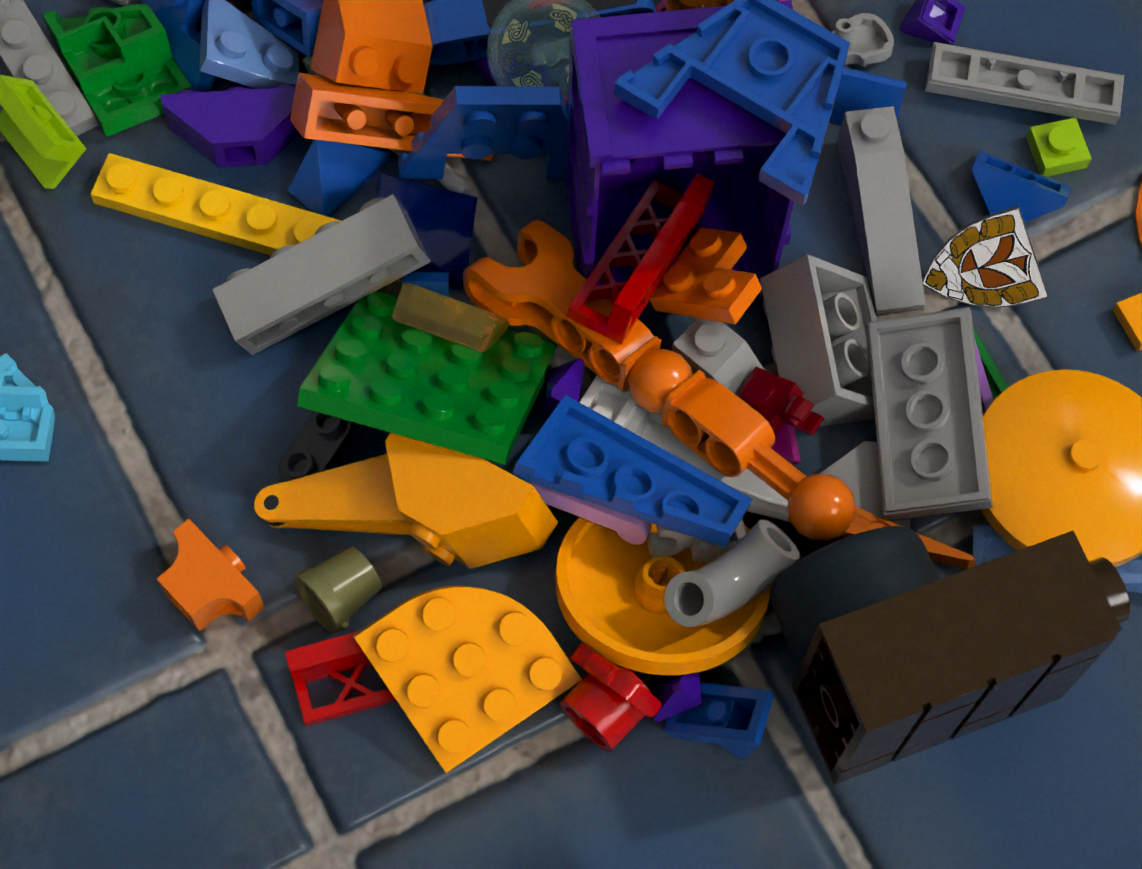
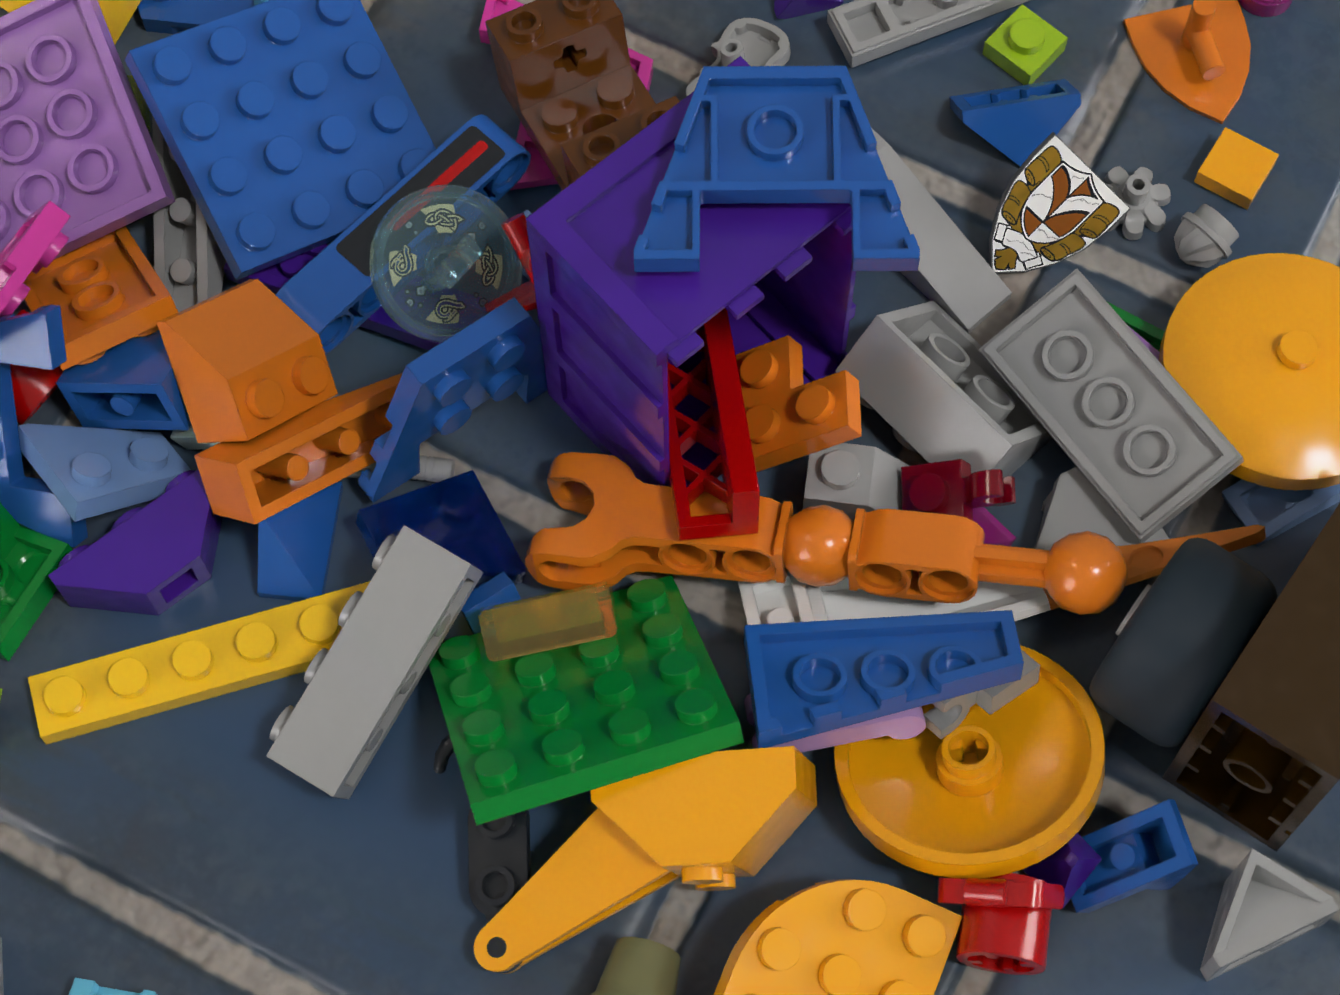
camera: 30 degrees left, 0 degrees up
(560, 382) = (716, 617): dark purple slope -> none
(732, 578) = (1050, 706): light grey cylinder -> none
(785, 813) = (1260, 911): none -> light grey slope
(1063, 298) = (1142, 199): none -> light grey plant
(1086, 349) = (1204, 237): none -> light grey plate

